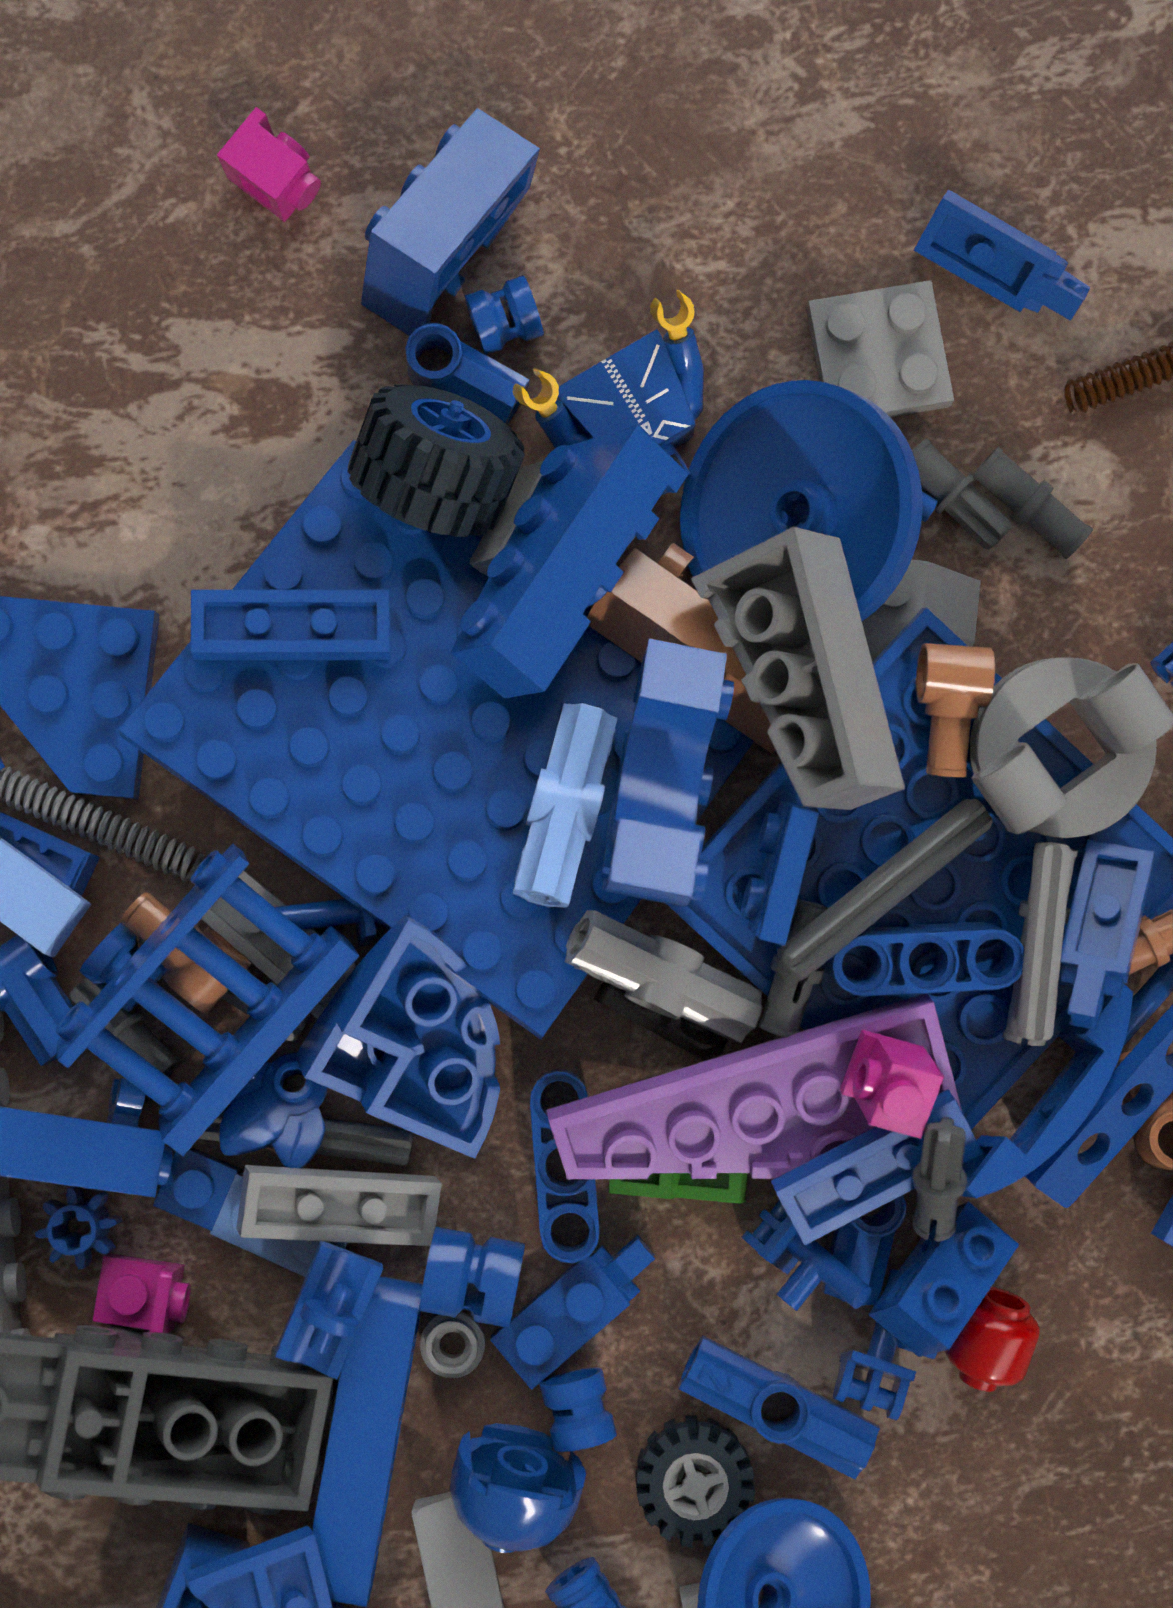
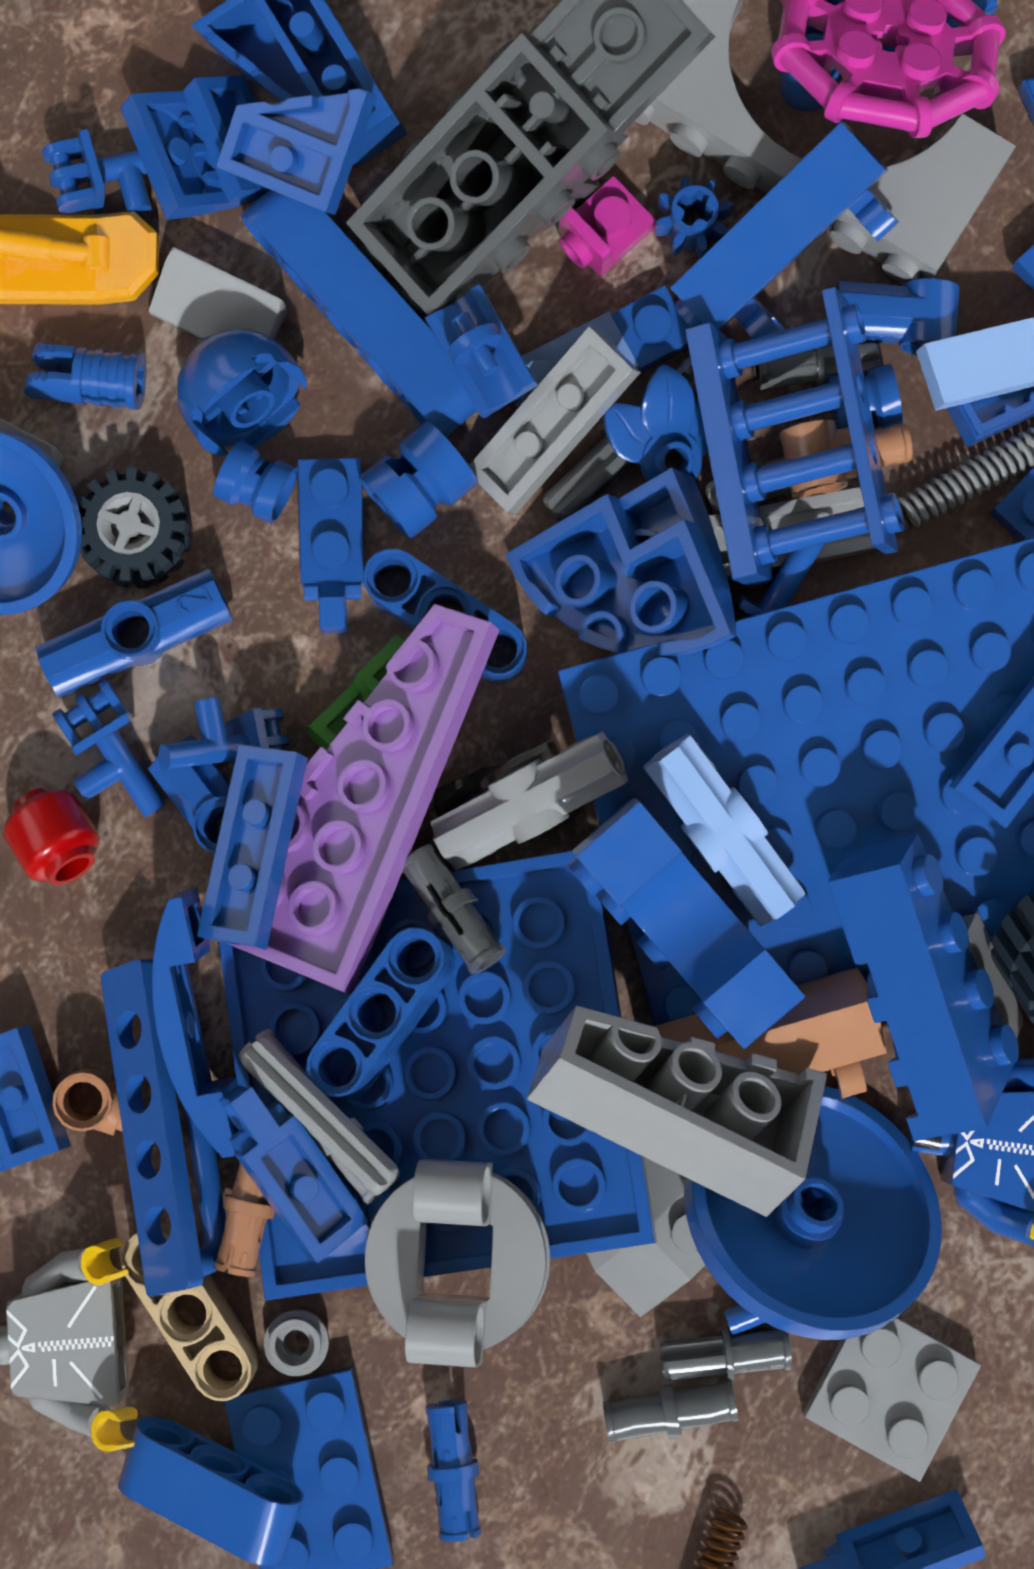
camera: 130 degrees right, 0 degrees up
(447, 1364) = (374, 410): light grey plate -> none
(773, 897) = (524, 931): blue plate -> none
(884, 888) = (460, 1025): dark grey axle -> none
(892, 1083) = (307, 906): dark pink brick -> none
(939, 1179) = (205, 883): dark grey axle -> none
(944, 1282) = (125, 833): blue brick -> none
(953, 686) = (574, 1209): nougat pin -> none

